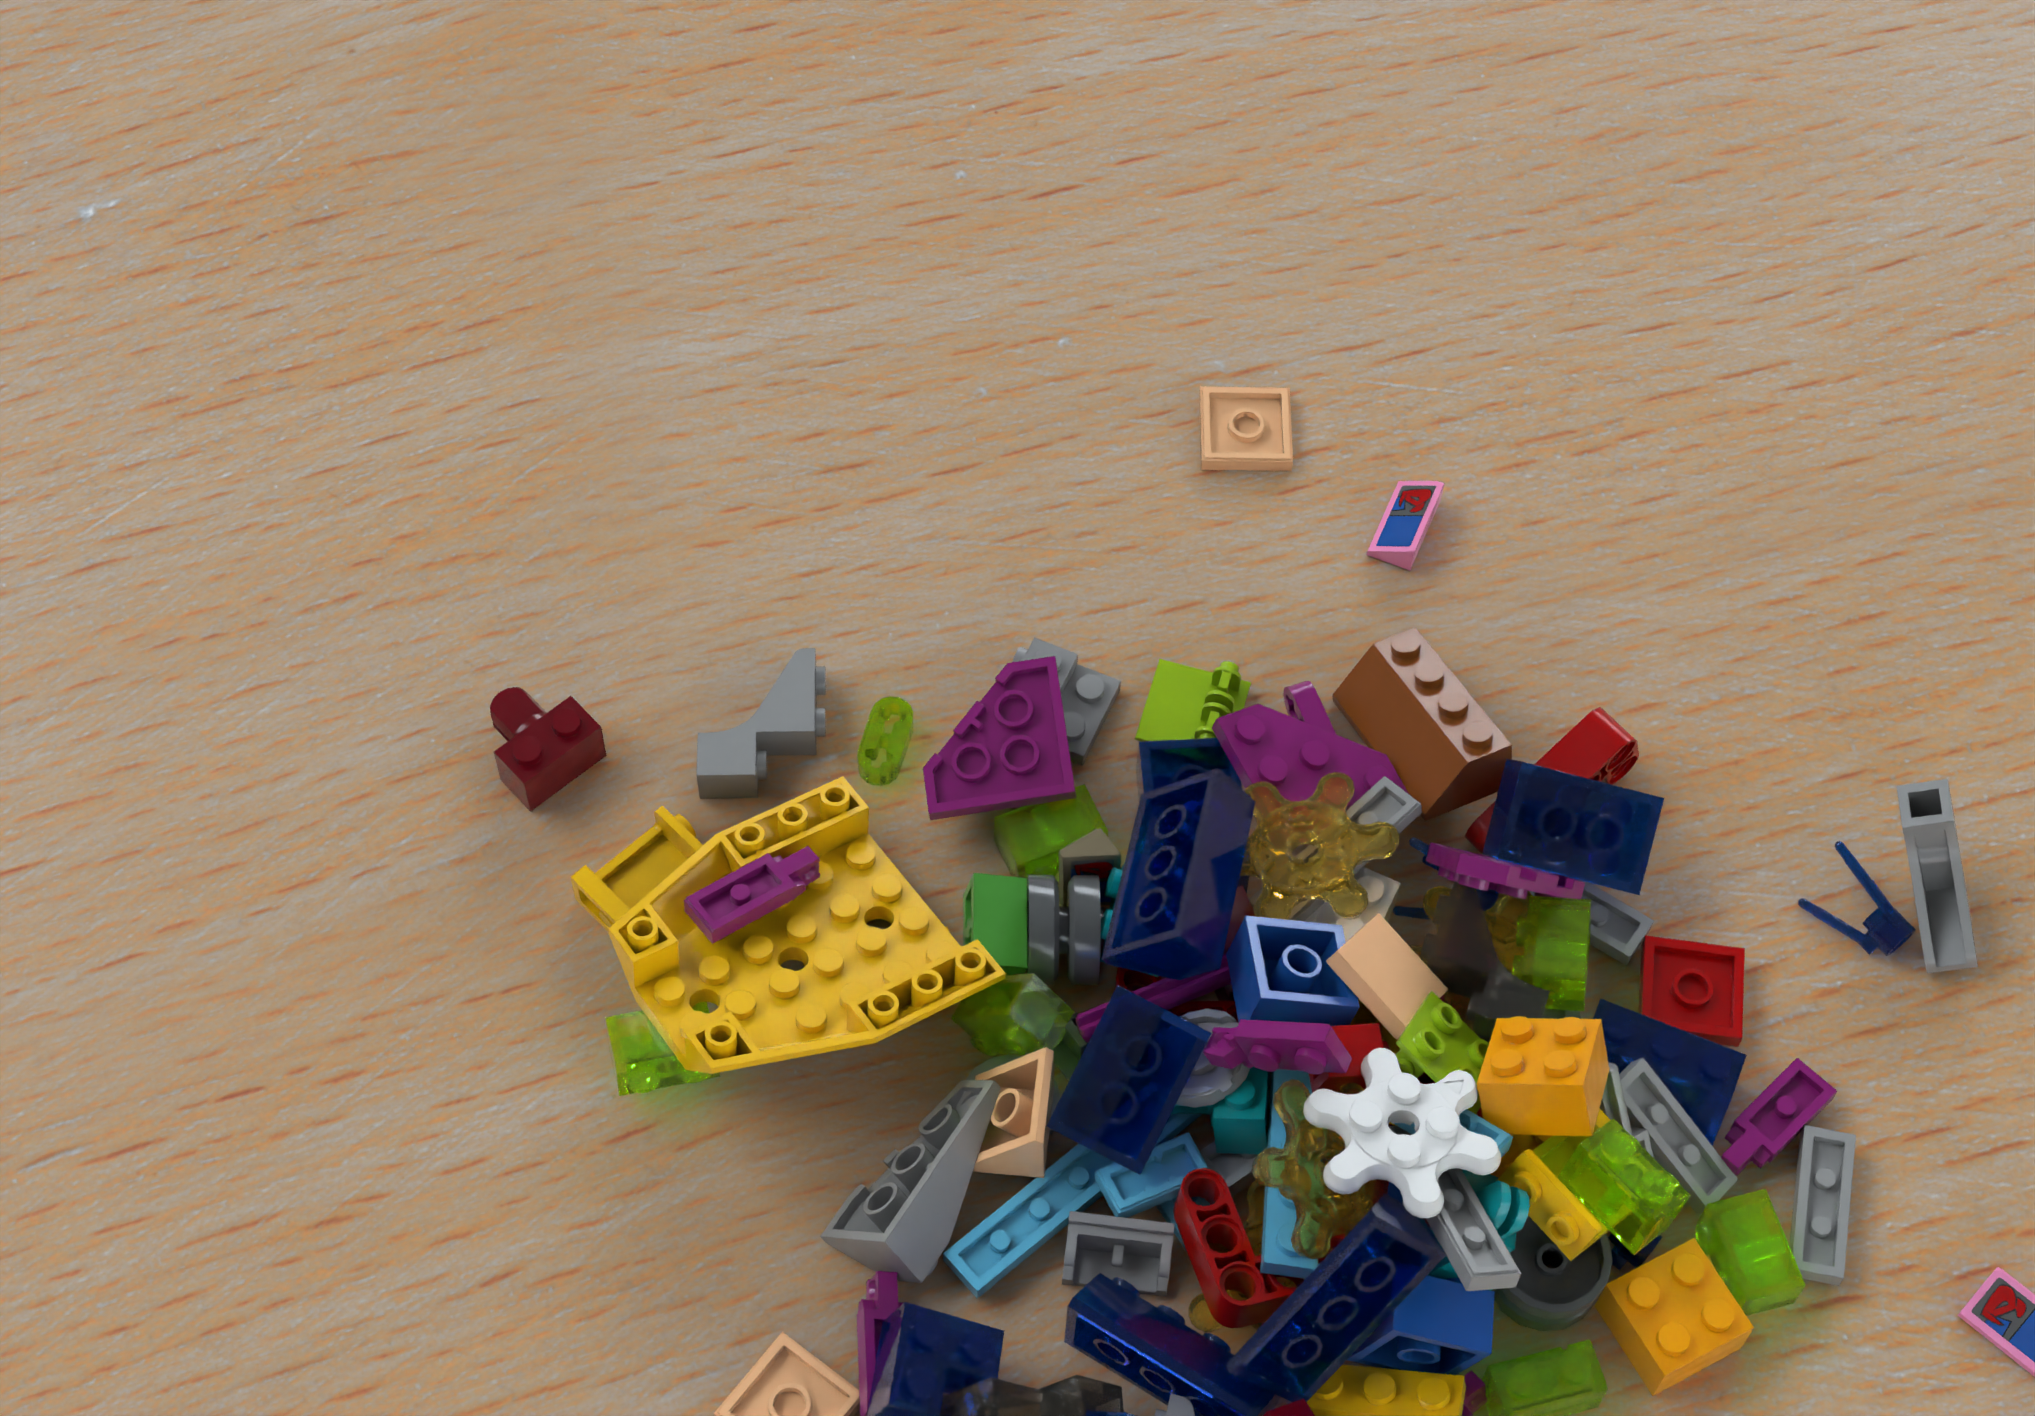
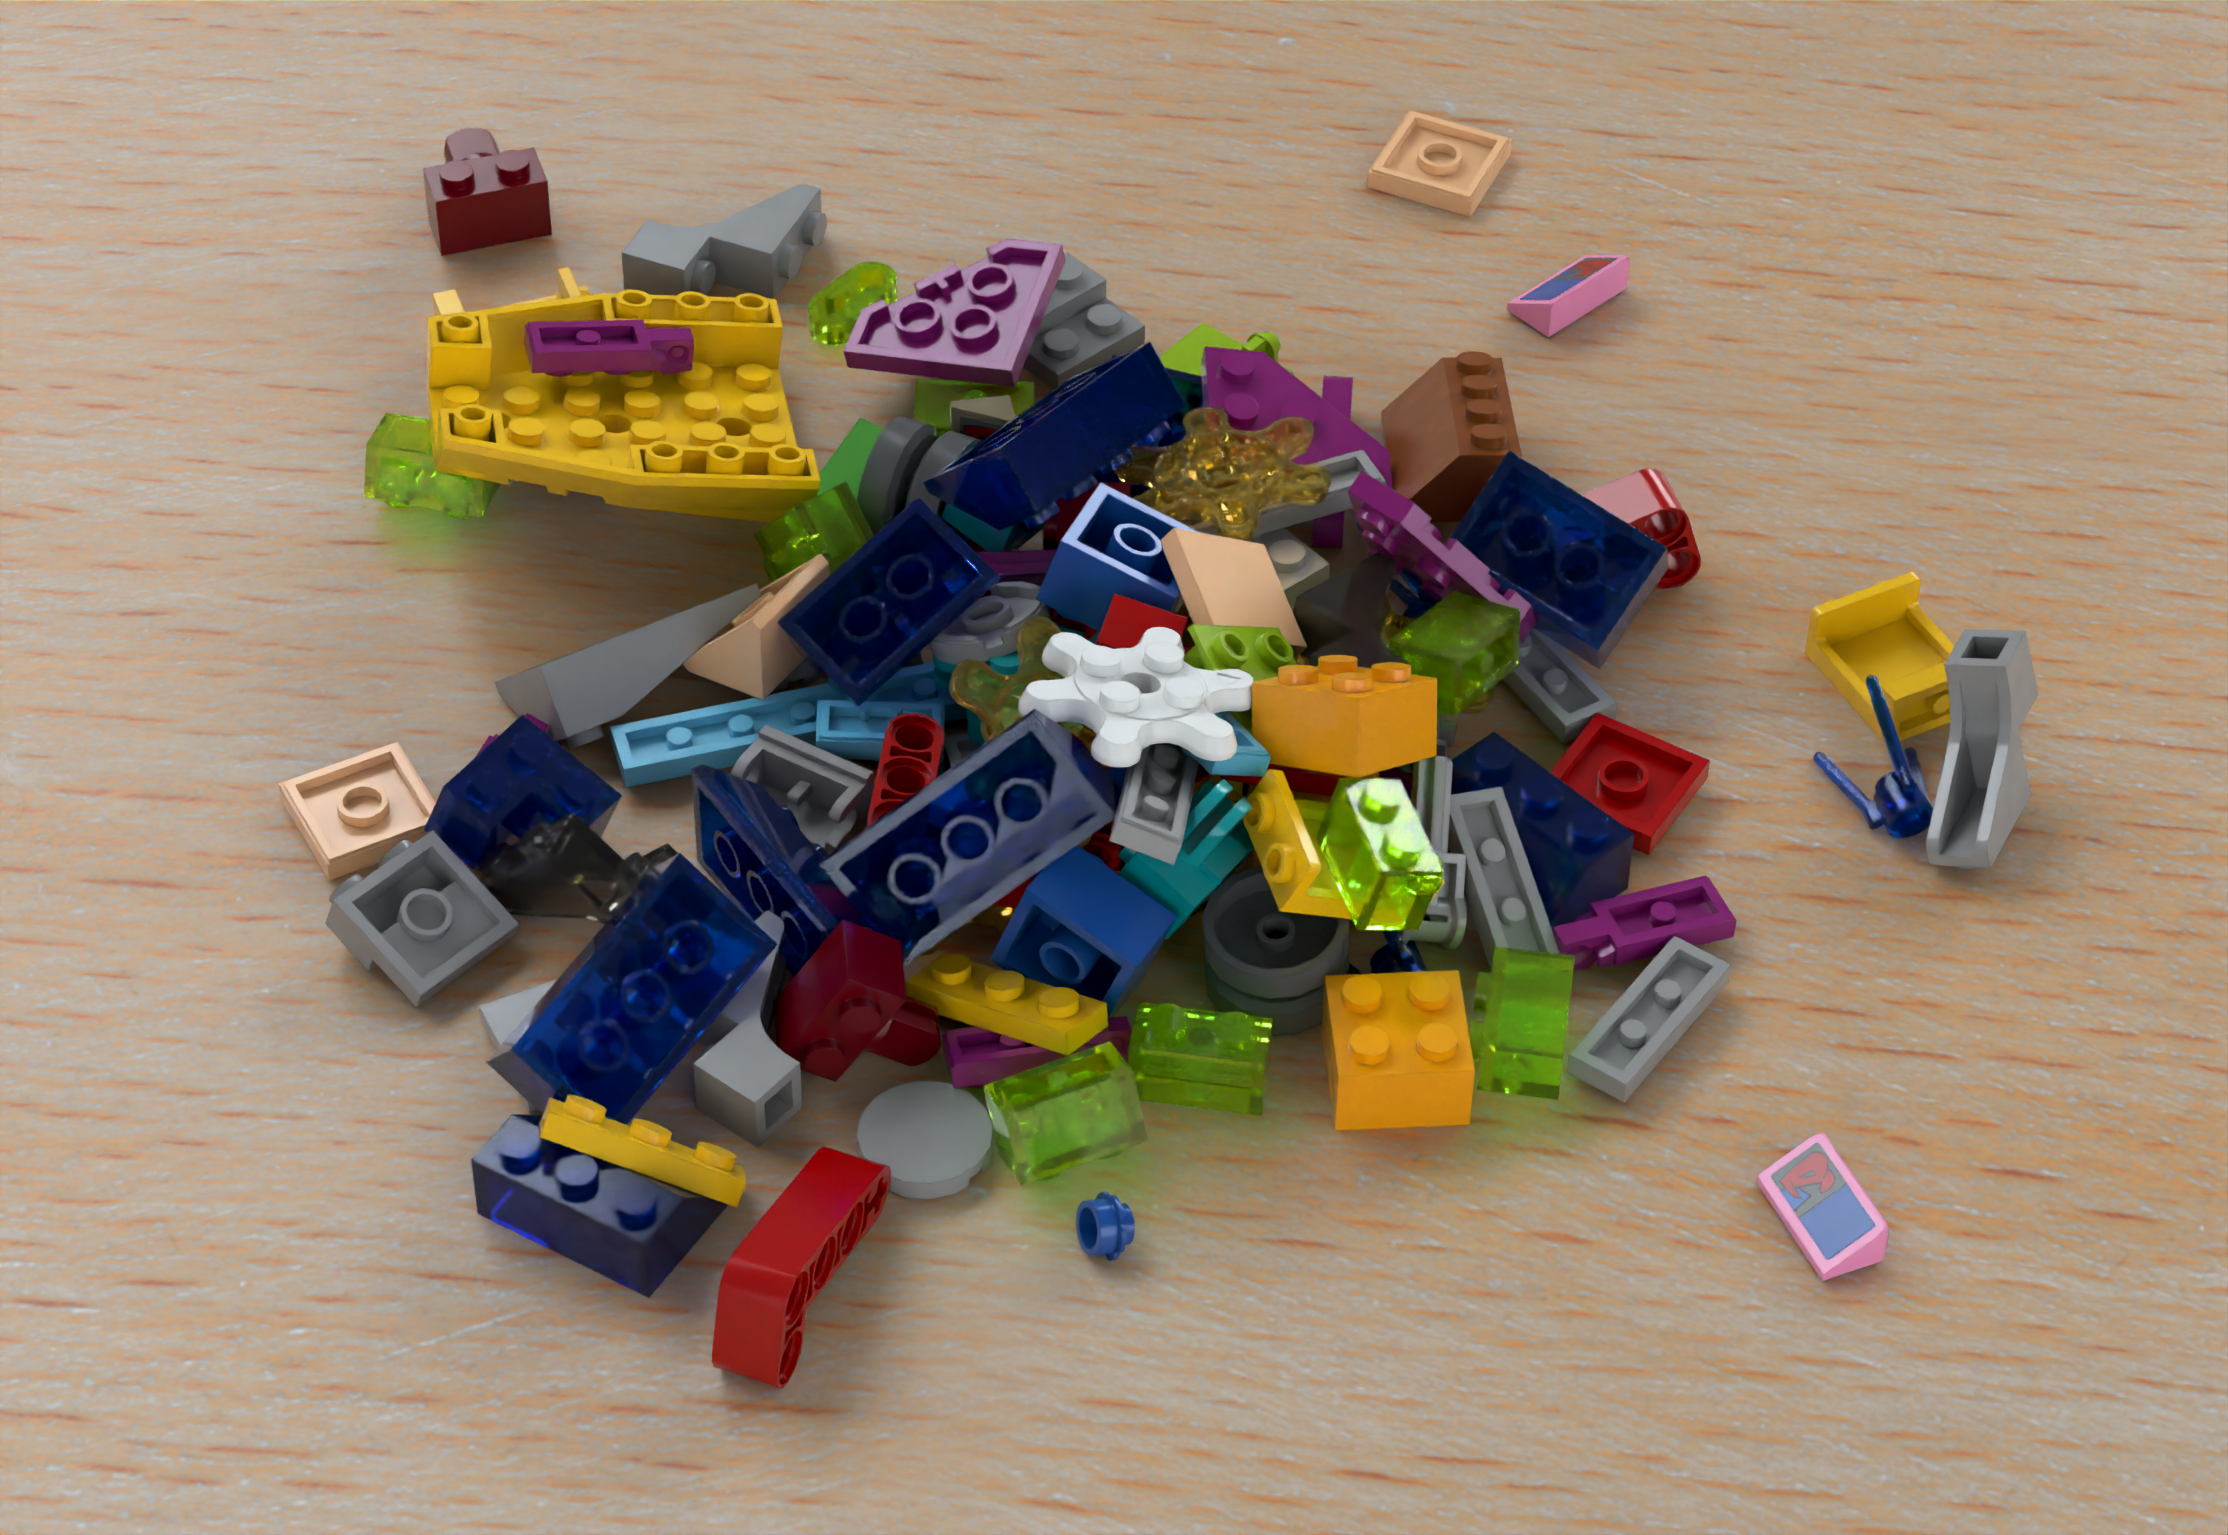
camera: 25 degrees right, 15 degrees down
(1278, 1046) = (1066, 591): magenta hinge -> none
(1815, 795) = (1889, 637): none -> yellow panel

